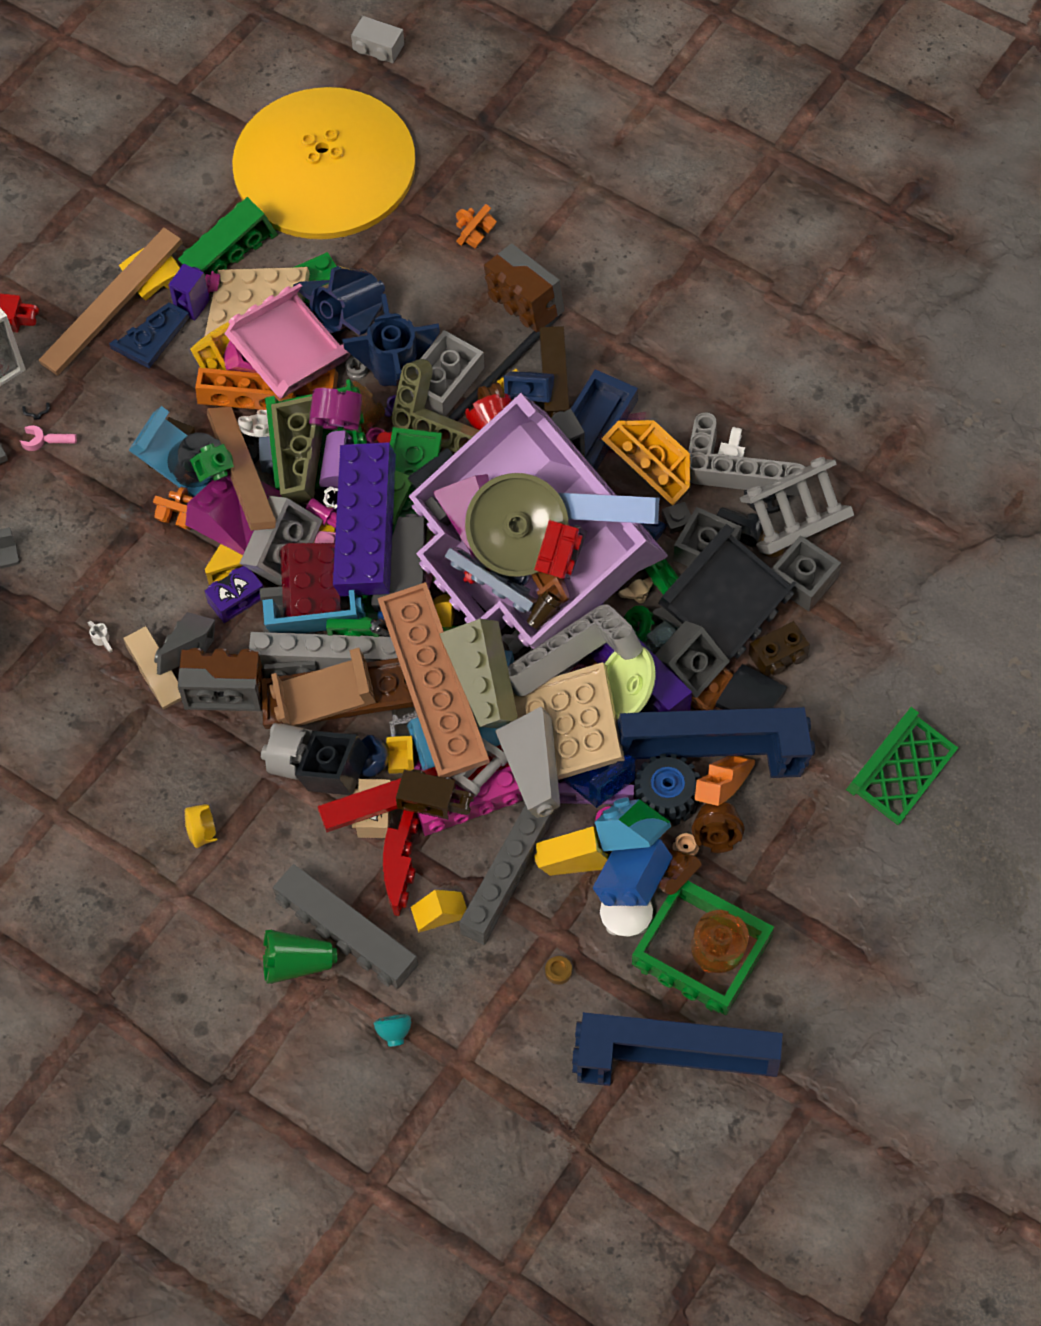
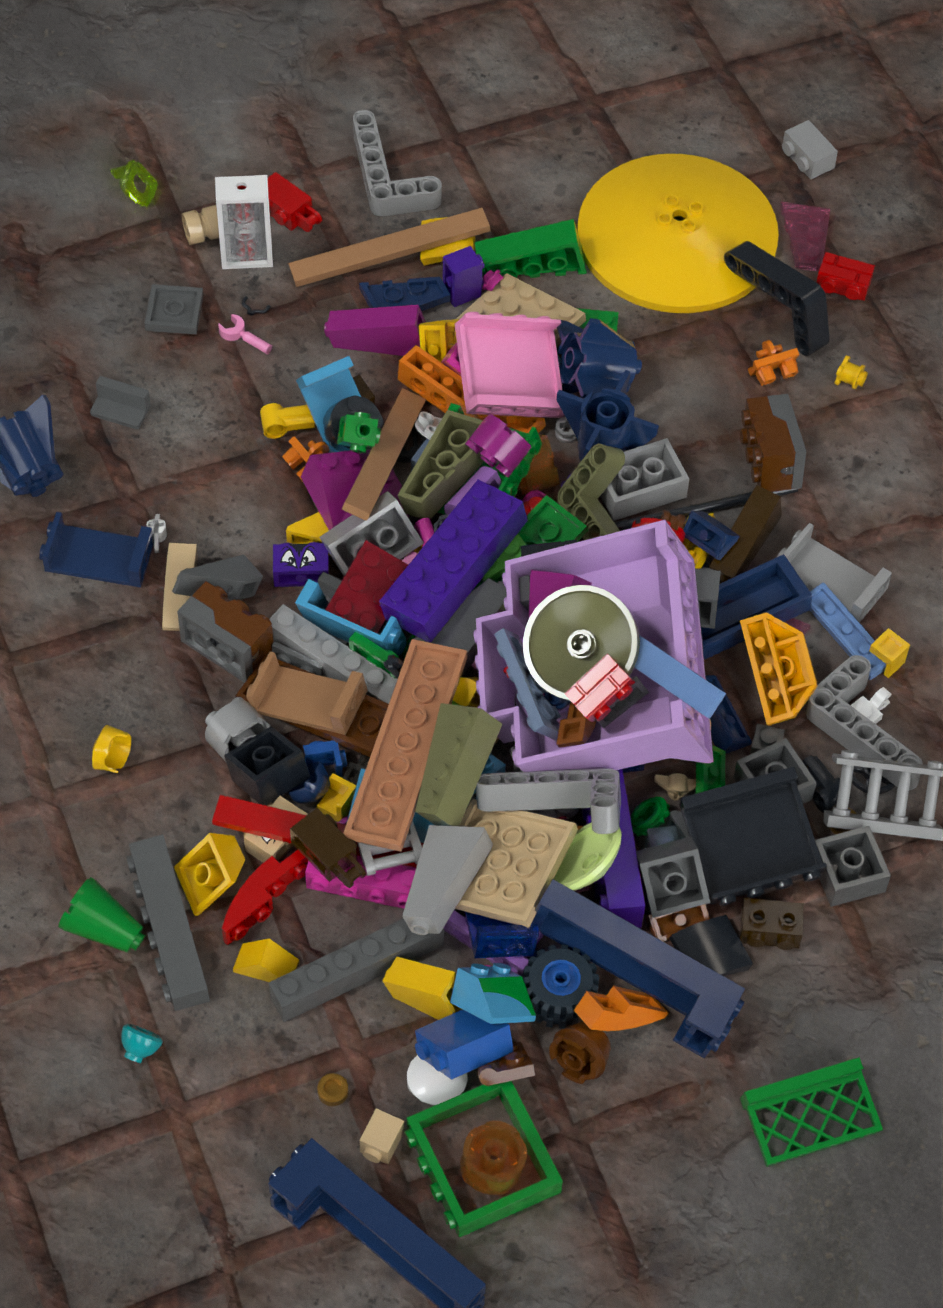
camera: 30 degrees right, 5 degrees down
(66, 681) = (96, 553): none -> dark blue panel
(72, 261) = (383, 195): none -> light grey beam
(130, 490) = (279, 420): none -> yellow piece
(154, 373) = (376, 330): none -> magenta slope
(348, 869) = (209, 870): none -> yellow slope
(367, 725) = (327, 753): none -> blue bracket
(423, 108) = (807, 233): none -> clear pink wing
(446, 158) = (788, 287): none -> black beam
(477, 127) = (845, 276): none -> red brick
(537, 201) = (851, 373): none -> yellow brick
(544, 609) = (552, 738): dark brown cone -> none
(621, 980) = (381, 1137): none -> tan brick
(639, 366) = (847, 581): none -> light grey panel
(674, 399) = (844, 627): none -> medium blue tile
(686, 839) = (534, 1046): light nougat plate -> none
(718, 396) = (891, 650): none -> yellow panel

